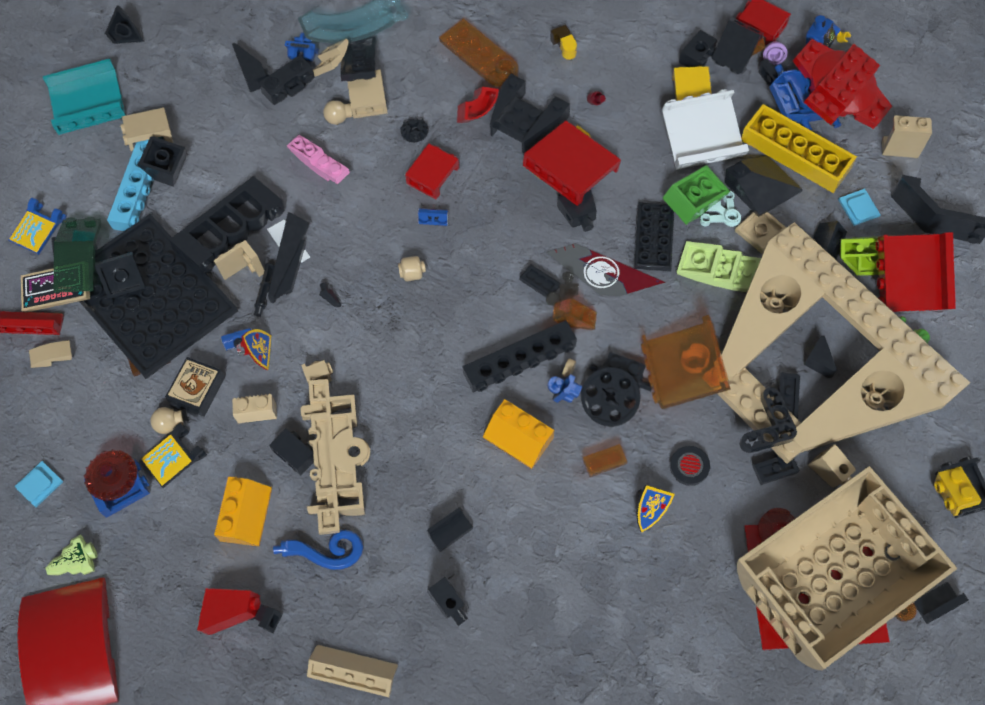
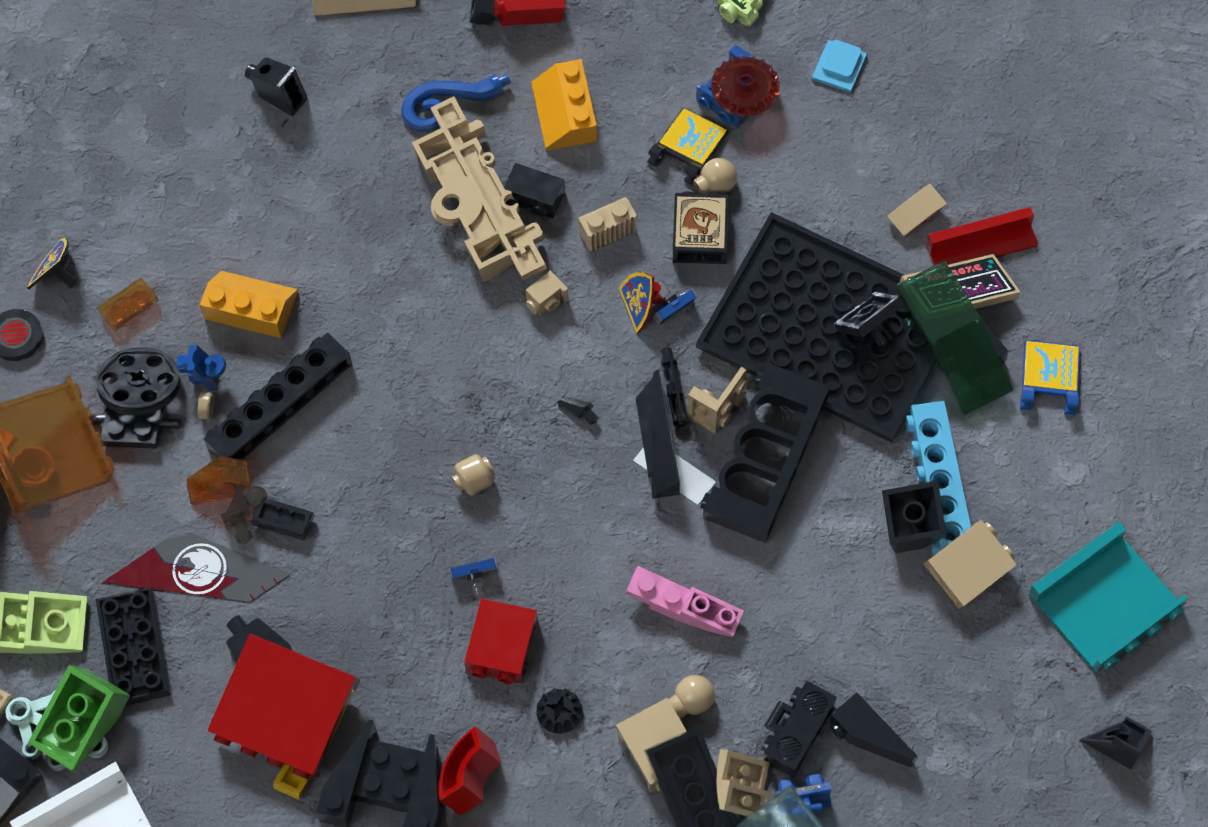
camera: 160 degrees right, 0 degrees up
(449, 529) = (301, 166): black panel -> none

